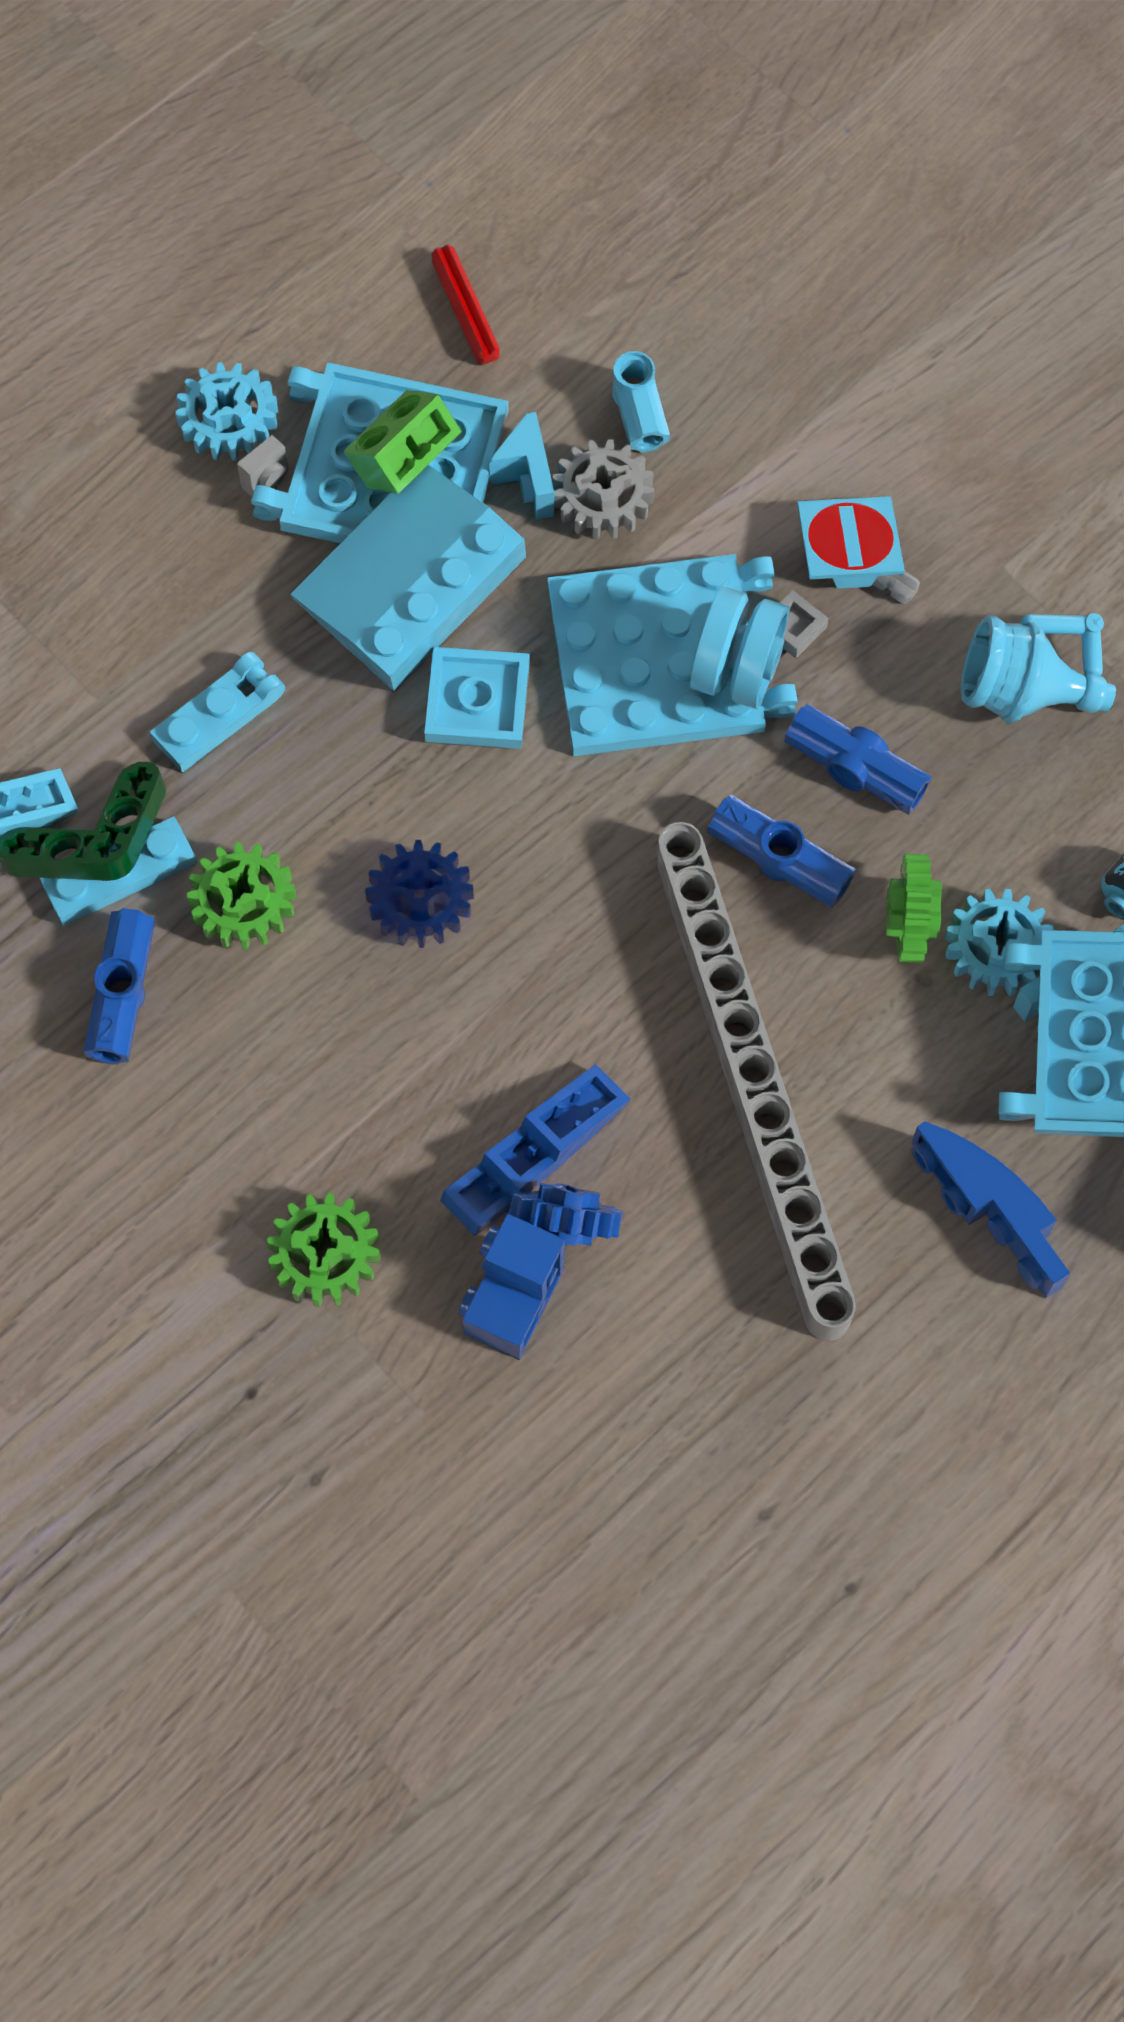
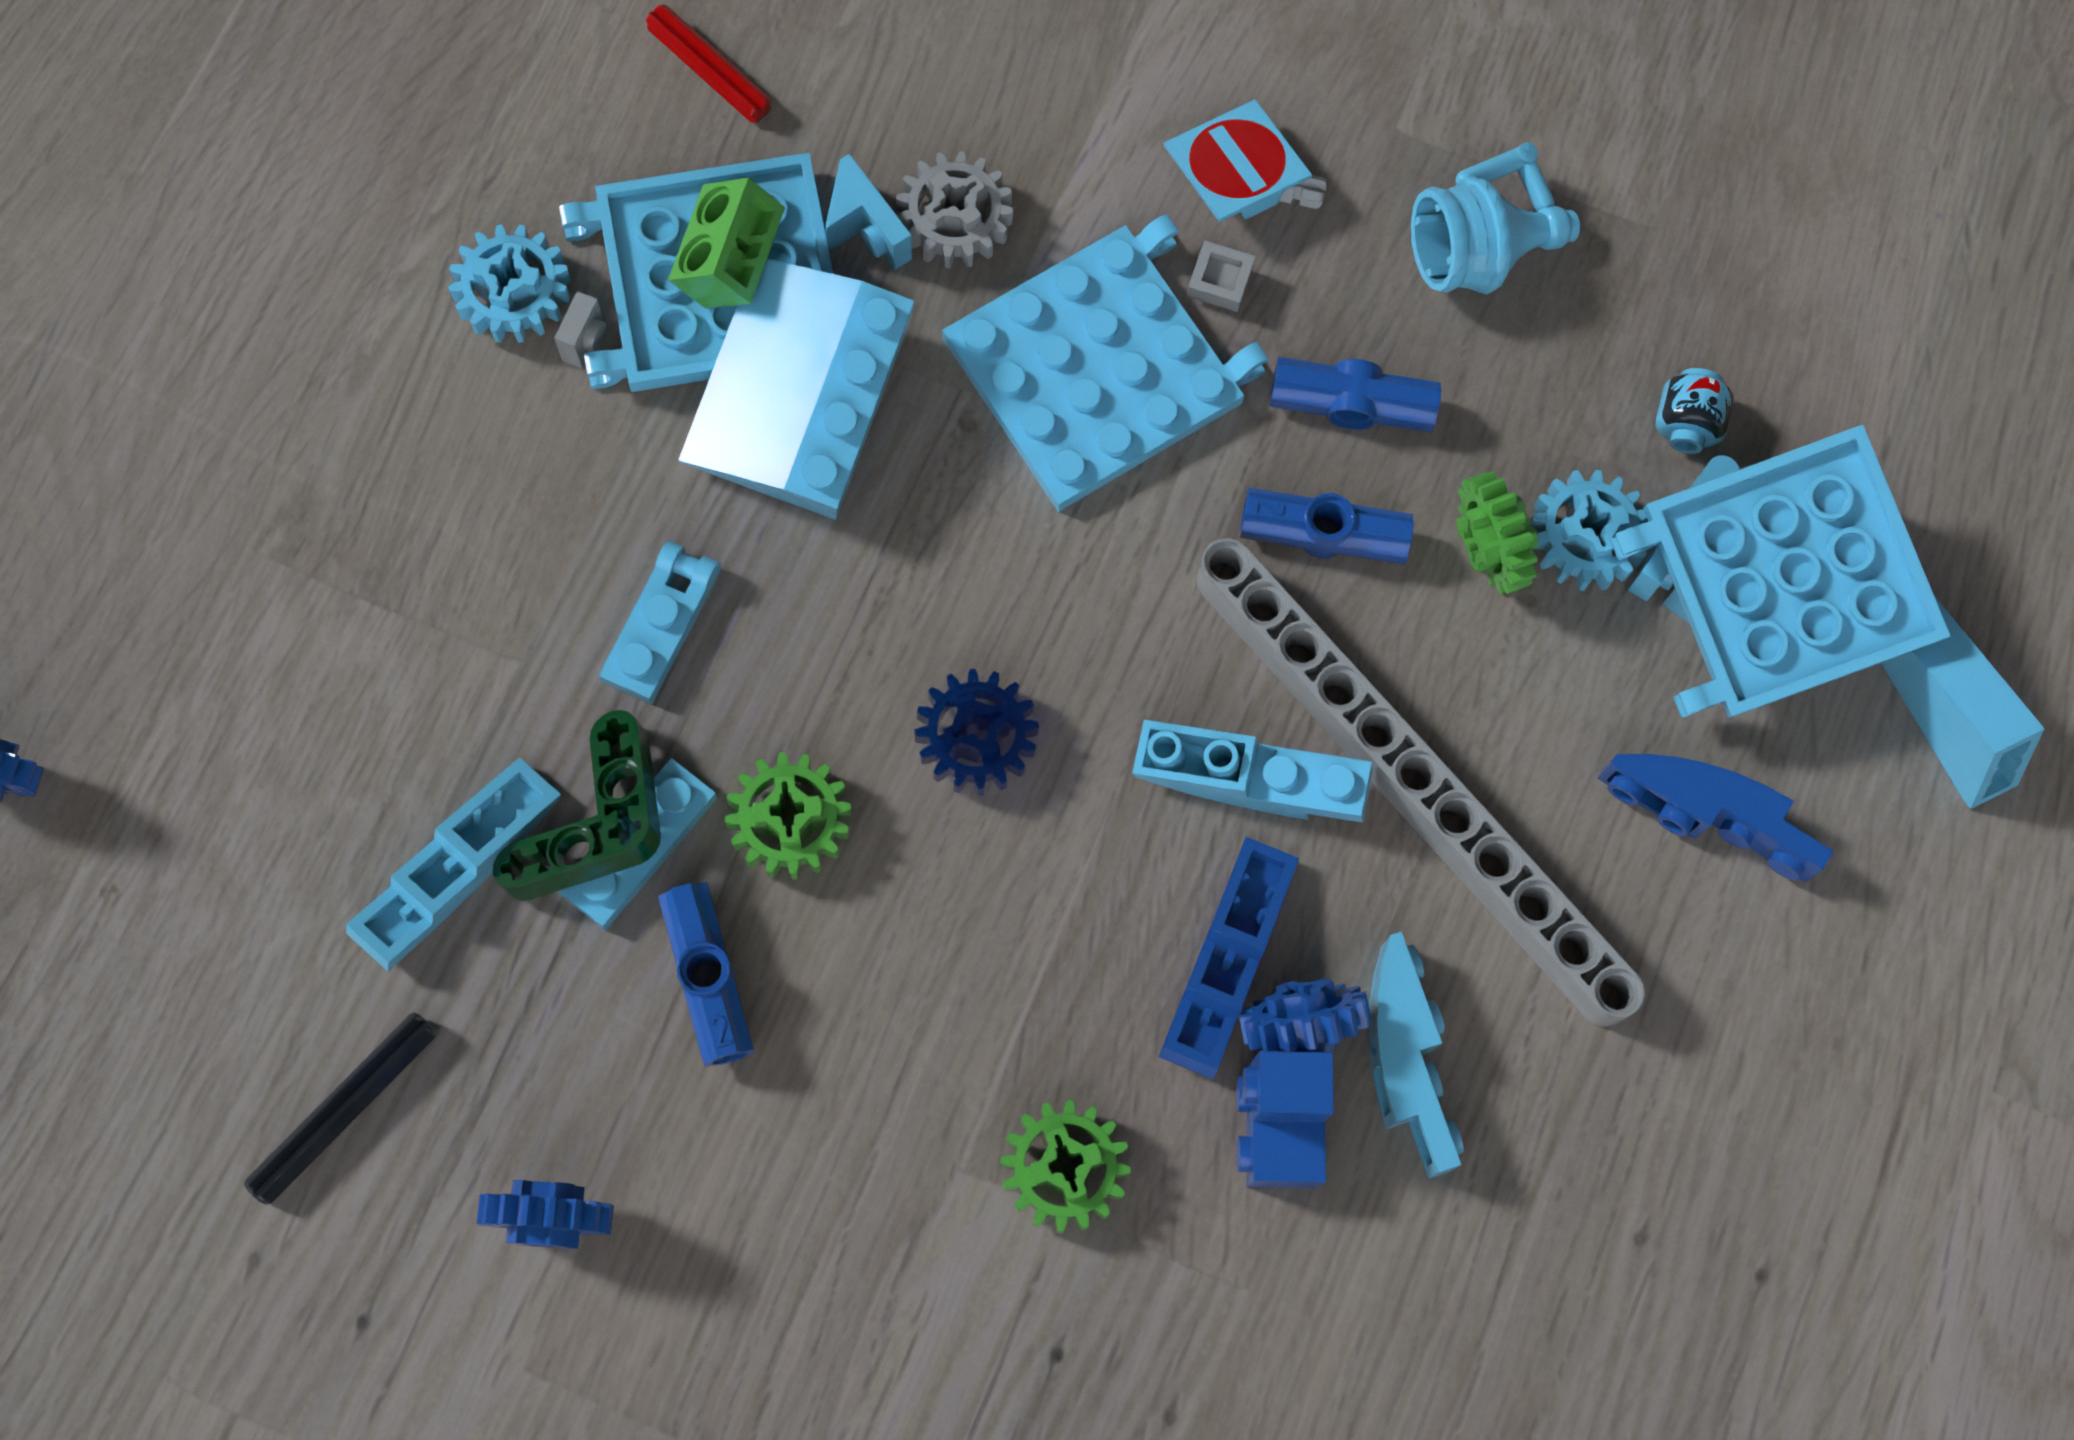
camera: 30 degrees left, 5 degrees up
(477, 698) = (932, 491): medium azure plate -> none
(621, 1016) = (1251, 774): none -> medium azure slope
(640, 402) = (948, 101): medium azure piece -> none
(641, 1269) = (1398, 1035): none -> medium azure slope
(746, 649) = (1203, 327): medium azure wheel -> none

